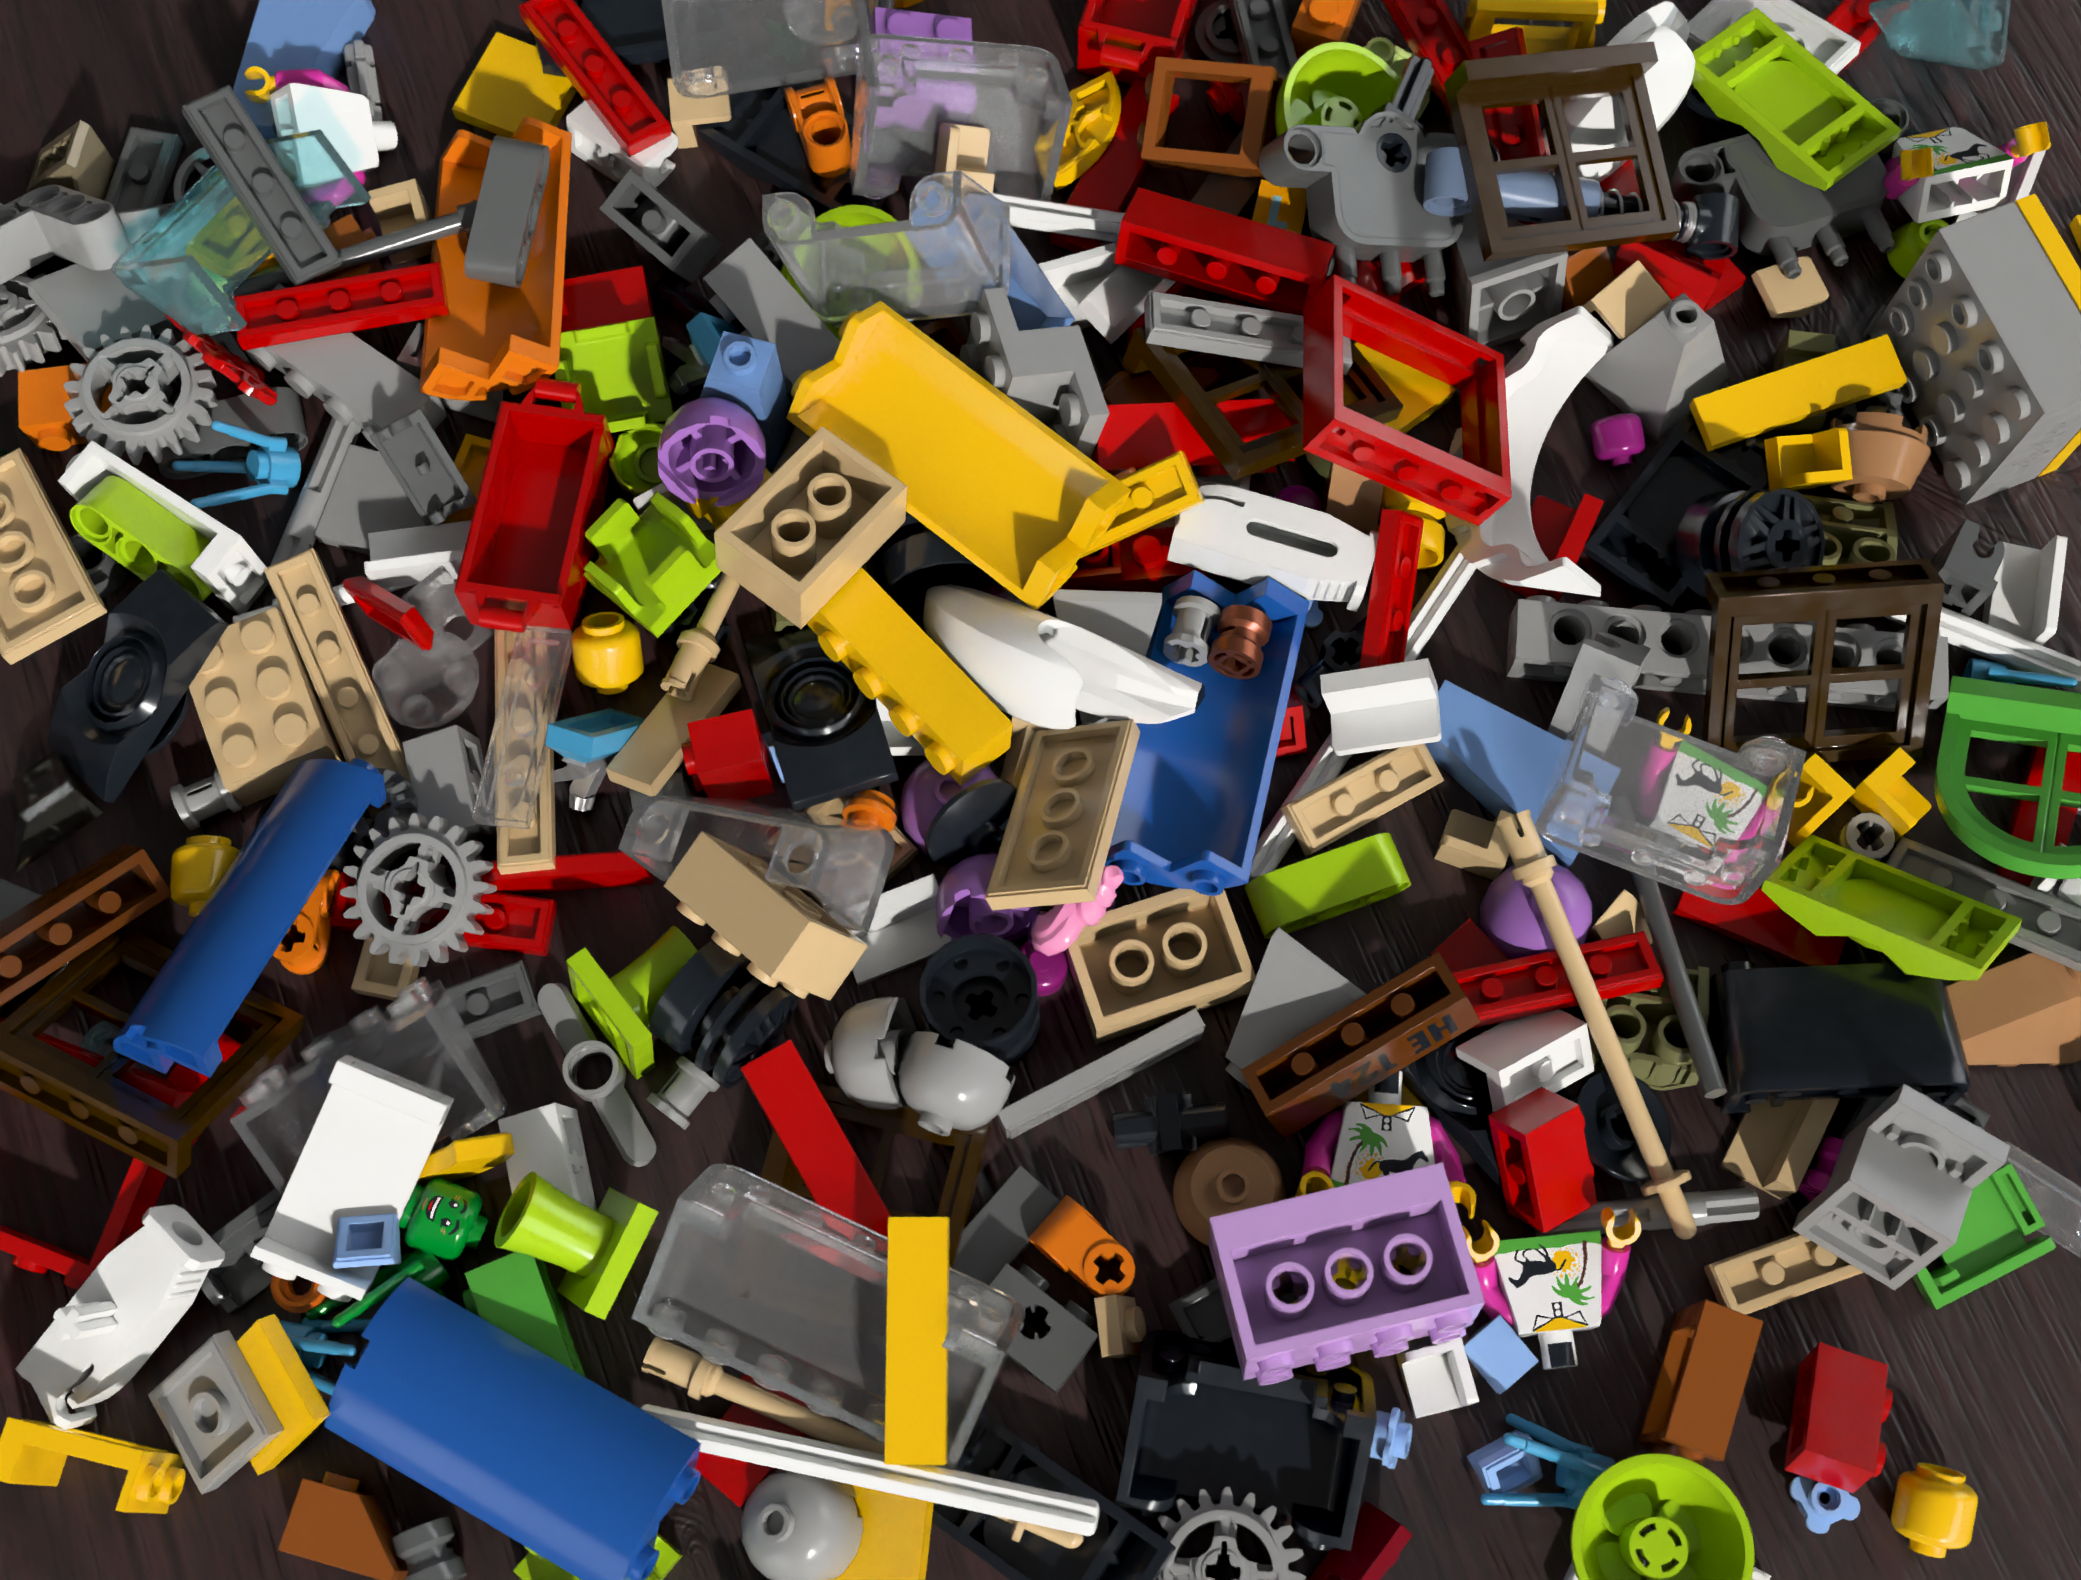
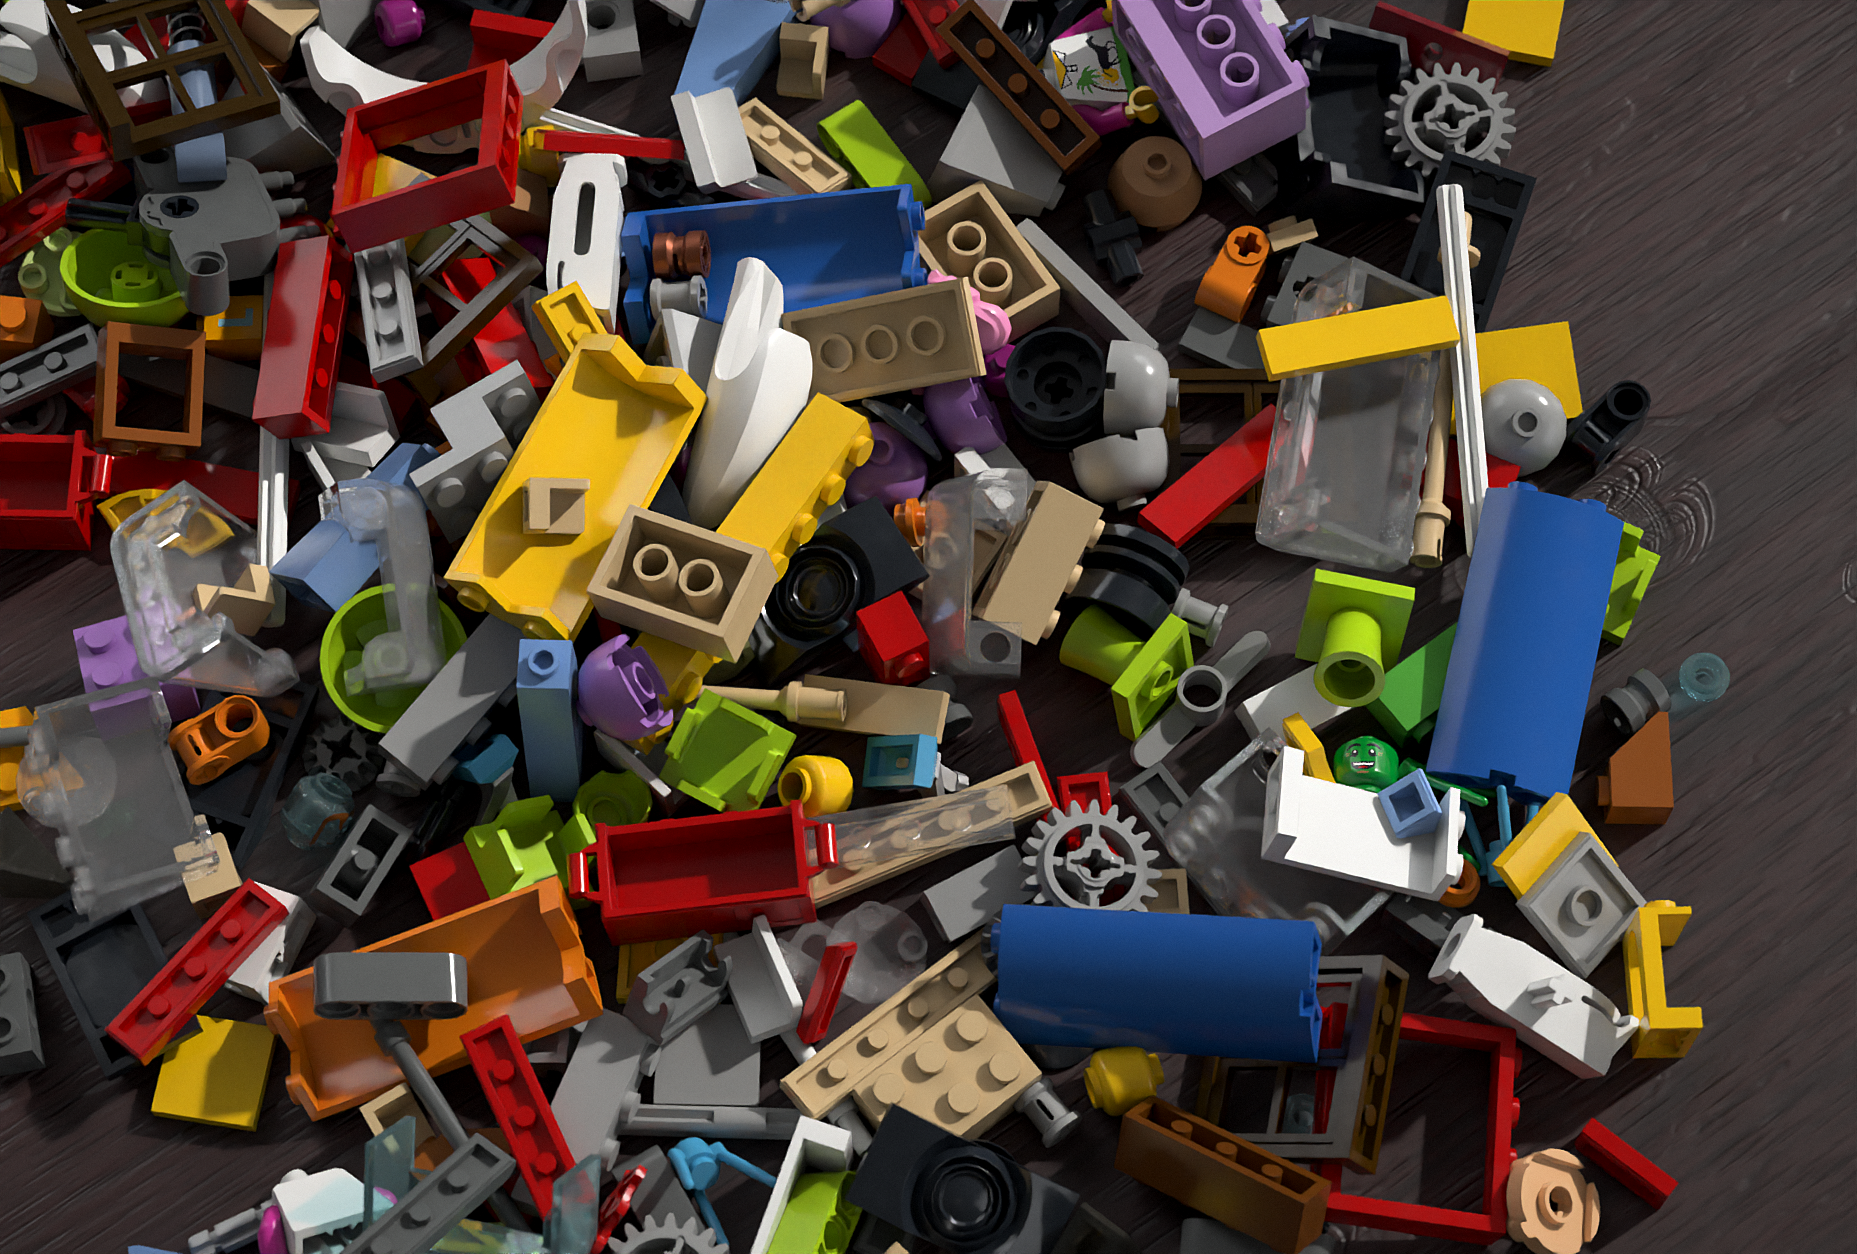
camera: 105 degrees left, 5 degrees down
(730, 204) = (317, 811): none -> clear light blue head
(938, 418) = (554, 505): none -> tan panel

